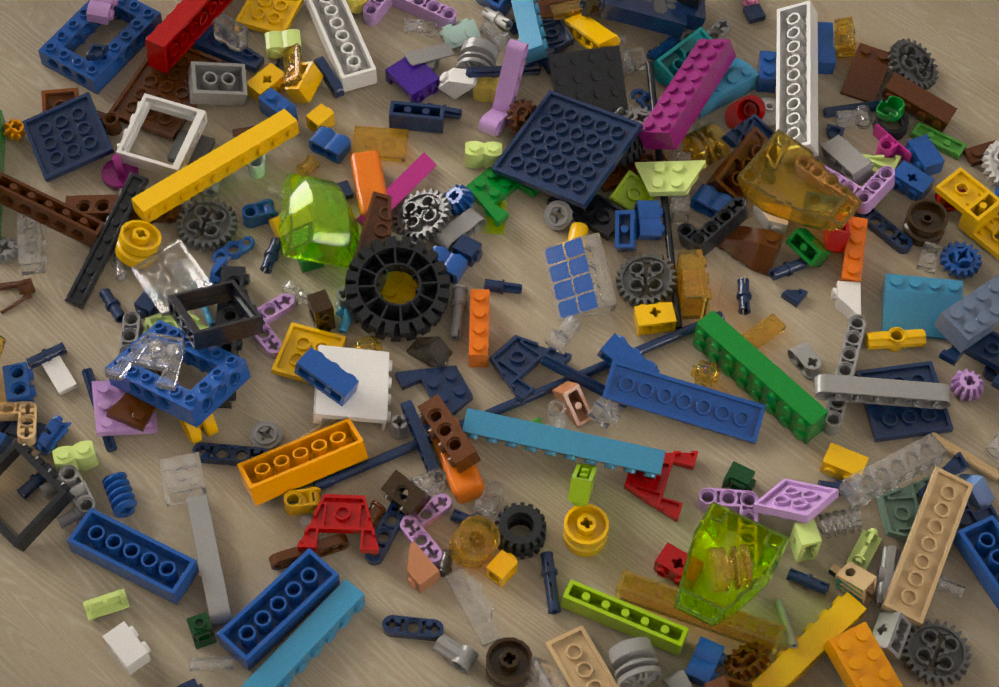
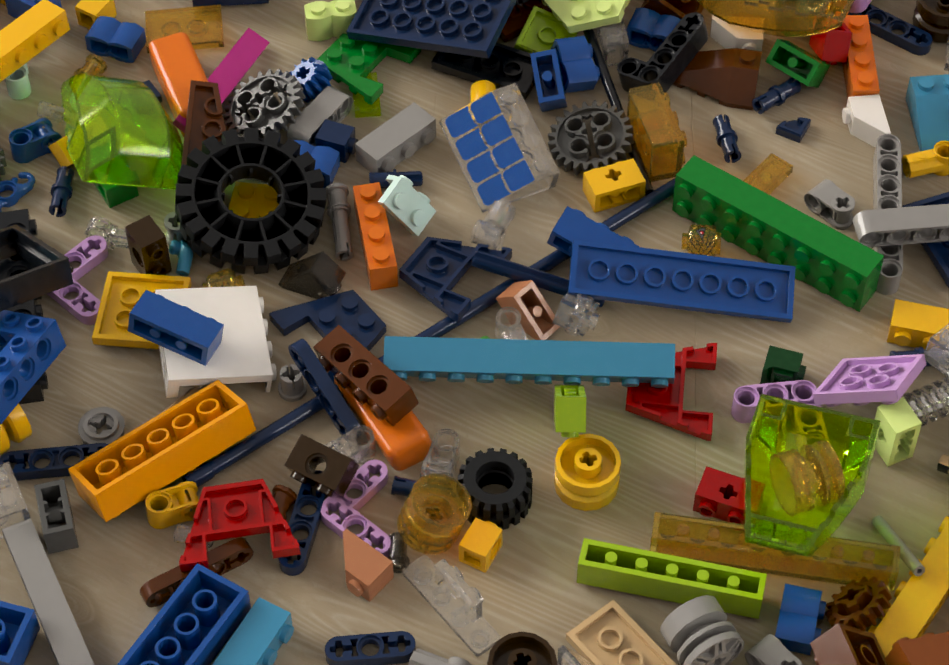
camera: 10 degrees left, 5 degrees down
(223, 495) = (56, 516): none -> dark grey brick
(504, 309) = (407, 204): none -> light aqua bracket
(509, 256) = (396, 139): none -> light grey brick
(553, 604) = (542, 523): dark blue pin -> none
(555, 207) = (444, 68): light grey gear -> none
(808, 581) = (912, 486): dark blue pin -> none

